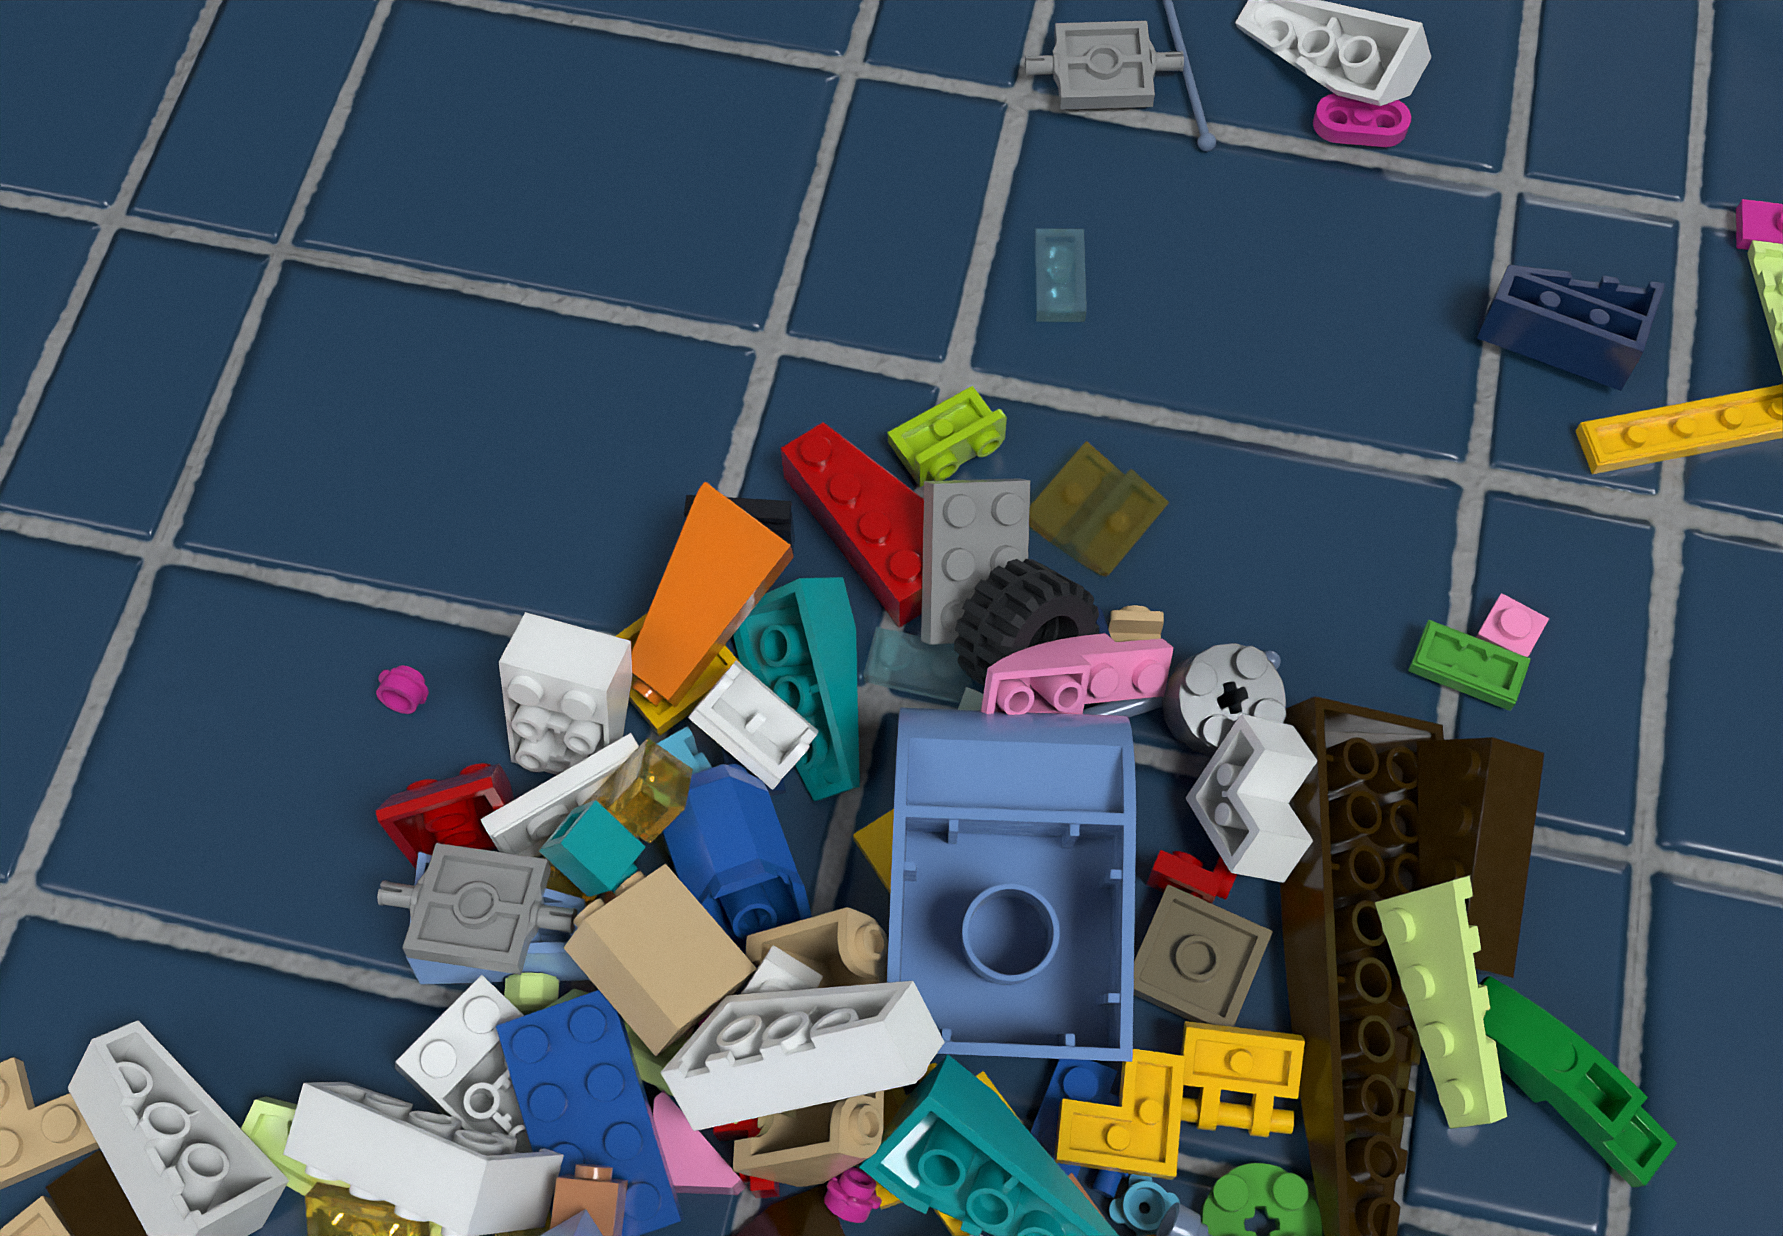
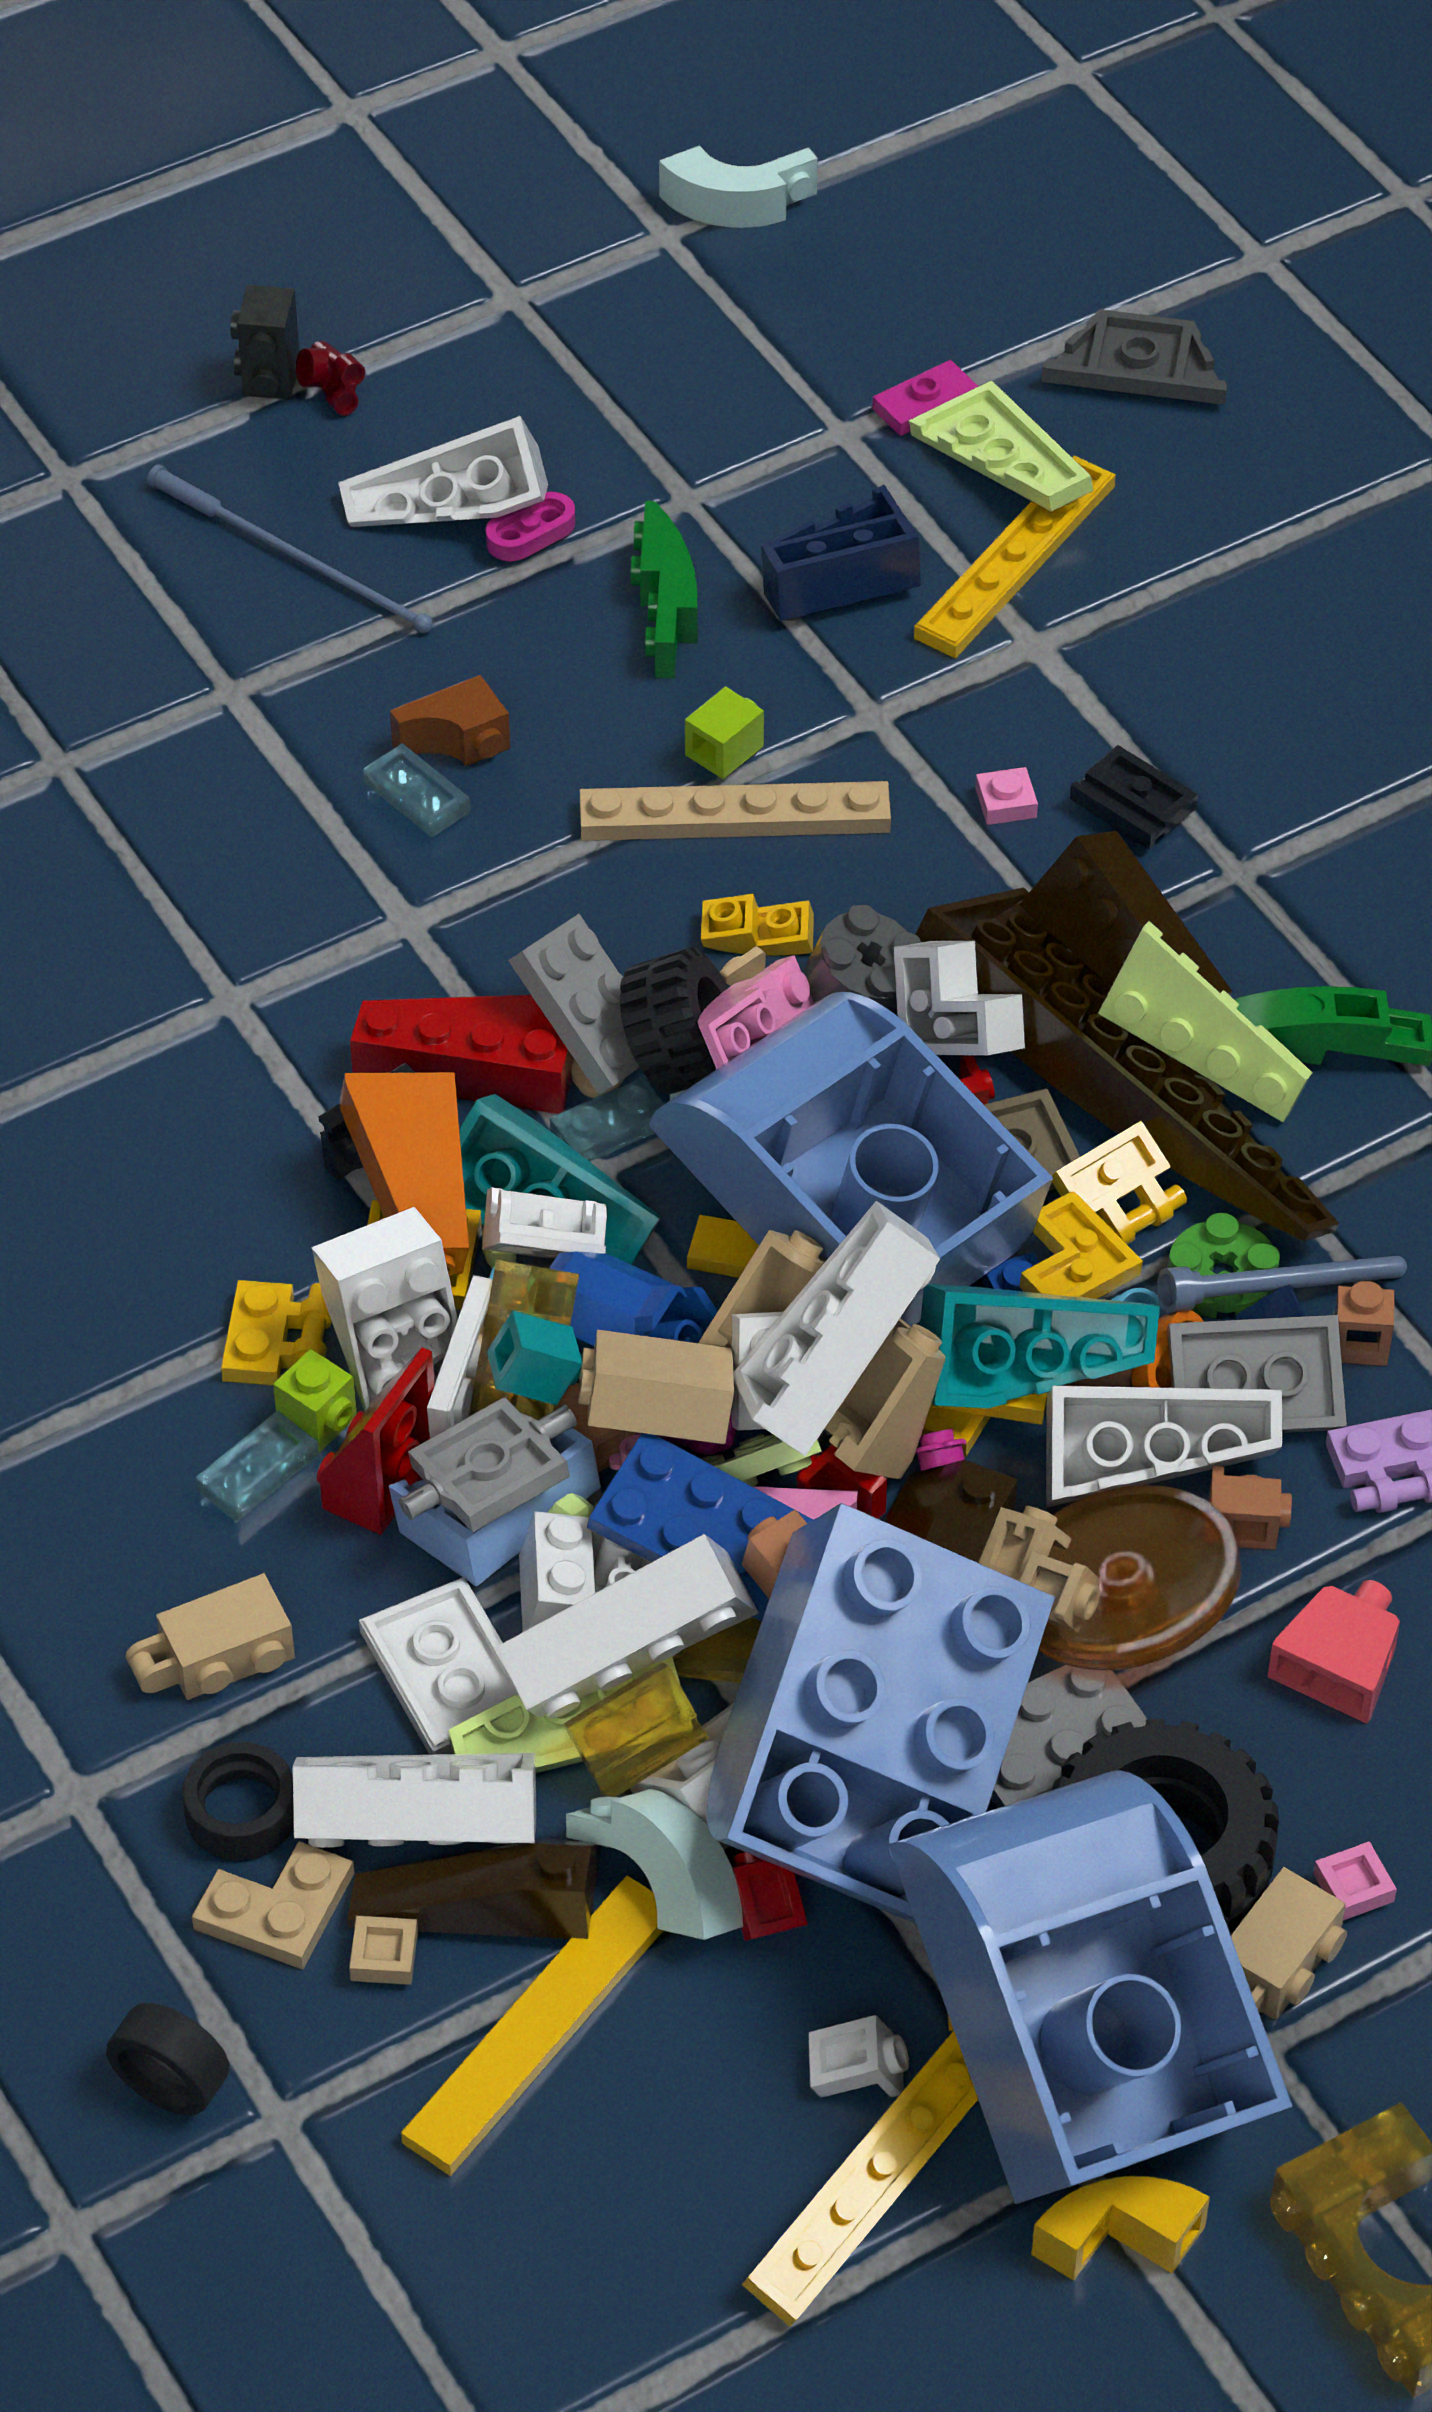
camera: 45 degrees left, 15 degrees down
(55, 984) = (230, 1763): none -> black tyre
(207, 865) = (215, 1641): none -> tan brick
(337, 1022) = (439, 1659): none -> white tile
(384, 741) = (257, 1466): none -> clear light blue plate
(402, 689) = (226, 1424): dark pink plate -> none
(468, 724) = (316, 1397): none -> lime brick
(486, 636) = (260, 1327): none -> yellow plate
(948, 436) = (459, 953): lime bracket -> none
(1095, 510) = (630, 923): clear yellow slope -> none
(1104, 64) = (279, 619): light grey plate -> none
(1140, 237) = (455, 722): none -> dark orange arch
(1194, 589) = (740, 925): none -> yellow slope
(1284, 476) = (735, 810): none -> tan plate
(1331, 402) = (724, 732): none -> lime brick
(1412, 247) = (666, 587): none -> green slope
(1469, 665) = (1002, 835): bright green plate -> none
(1615, 717) = (1133, 796): none -> black plate

